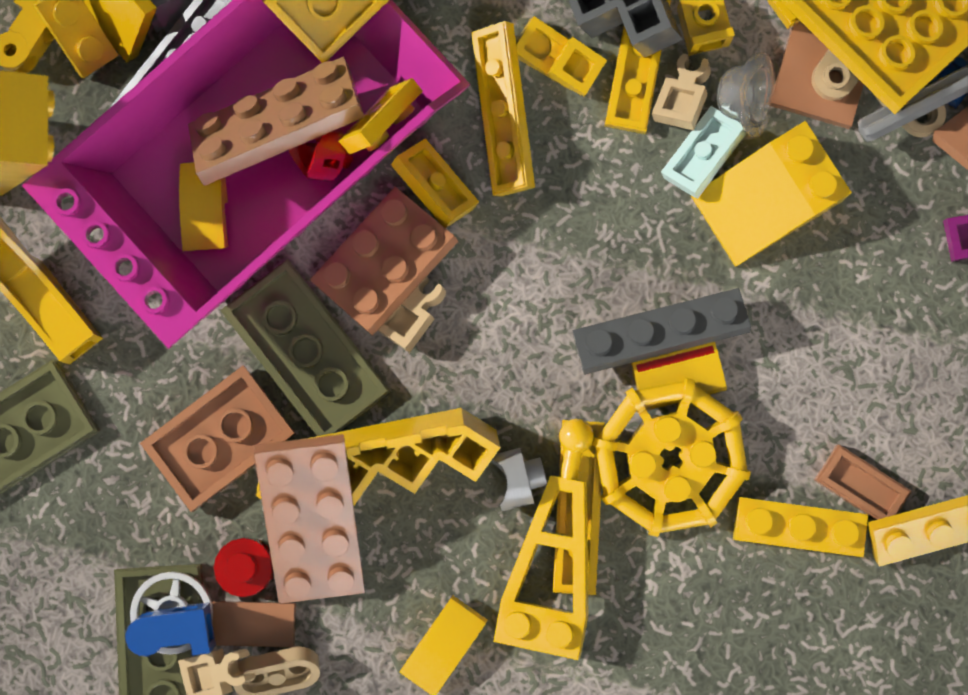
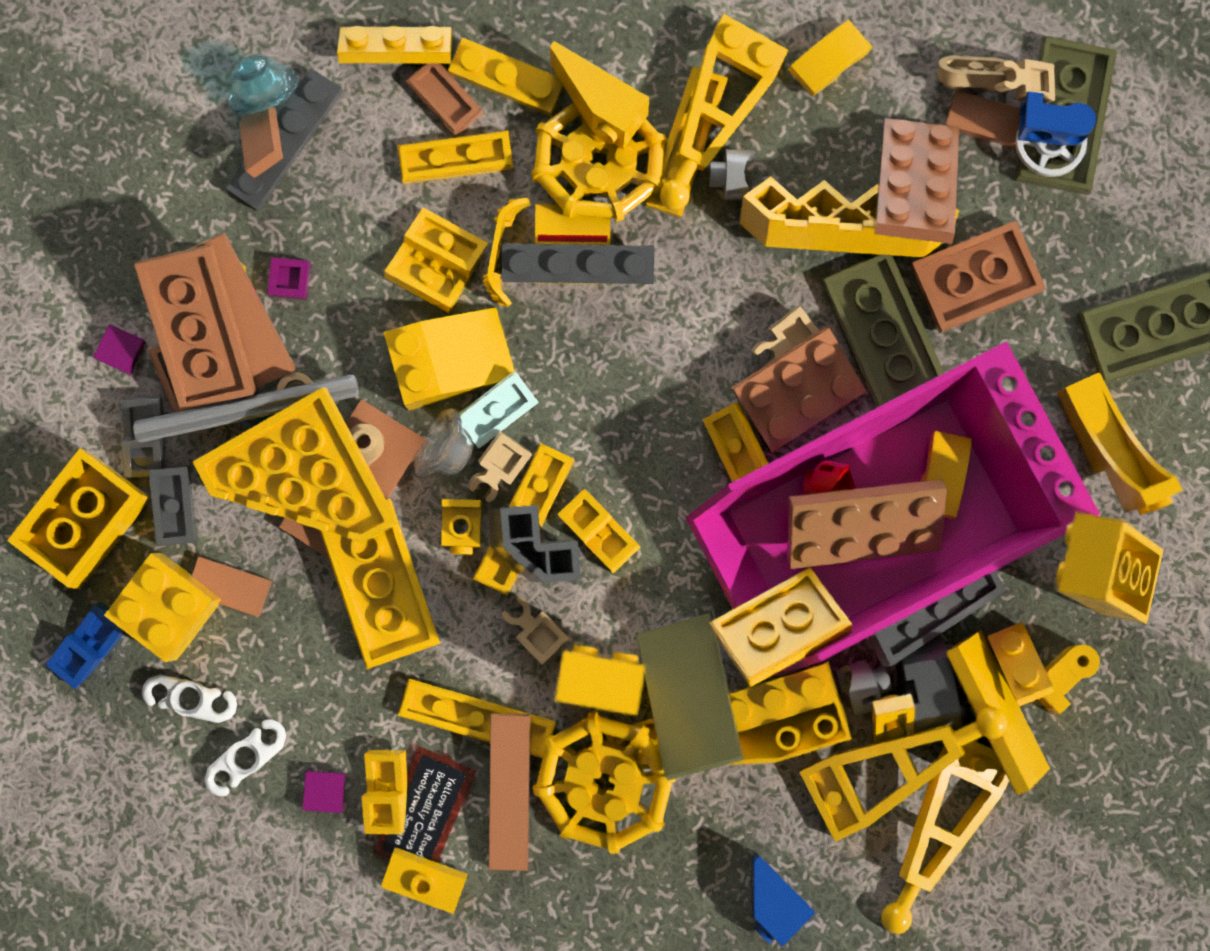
camera: 170 degrees left, 0 degrees up
(244, 567) = (981, 164): red piece -> none
(388, 109) = (772, 499): yellow plate -> none
(503, 109) = (660, 495): yellow tile -> none
(681, 515) = (604, 101): none -> yellow slope
(750, 292) = (504, 219): none -> yellow piece
(817, 299) = (435, 260): none -> yellow slope
(829, 420) = (455, 157): none -> yellow tile

